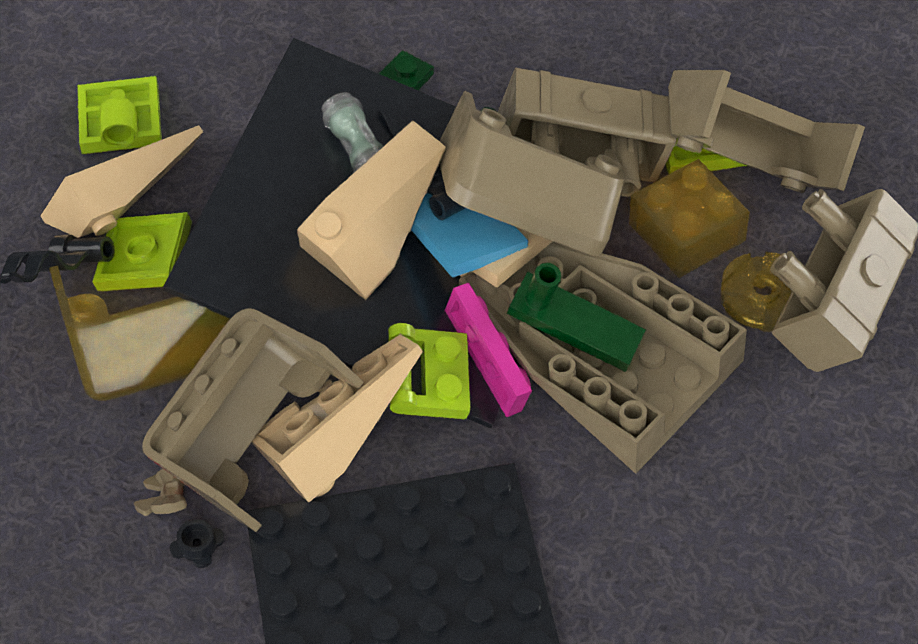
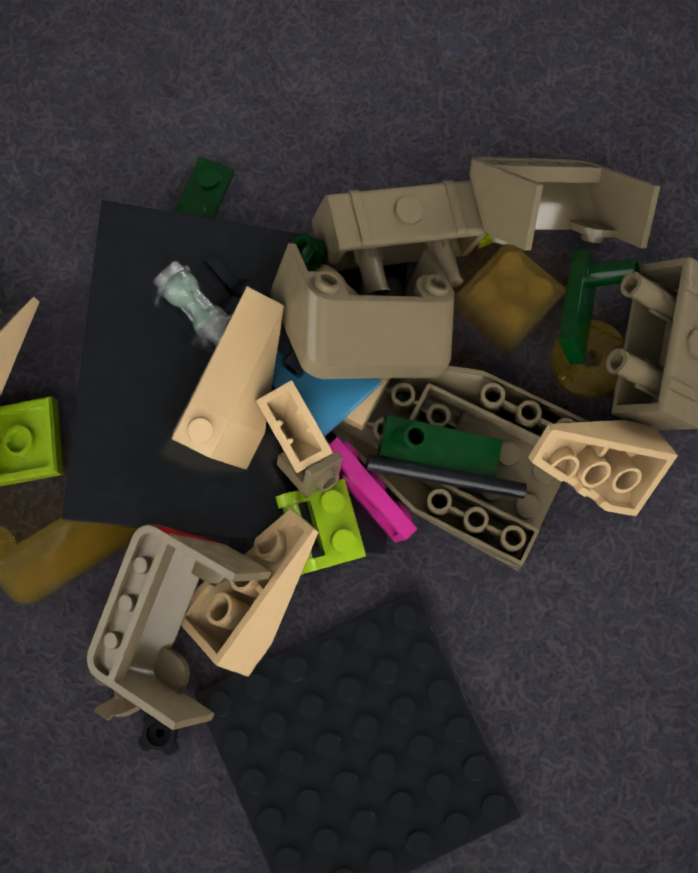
camera: 15 degrees left, 25 degrees up
(425, 253) = (294, 426): none -> tan slope
(434, 307) = (316, 477): none -> dark tan bracket
(575, 345) = (446, 476): none -> black bar
(752, 366) = (606, 460): none -> tan wedge
(762, 228) = (580, 297): none -> dark green piece

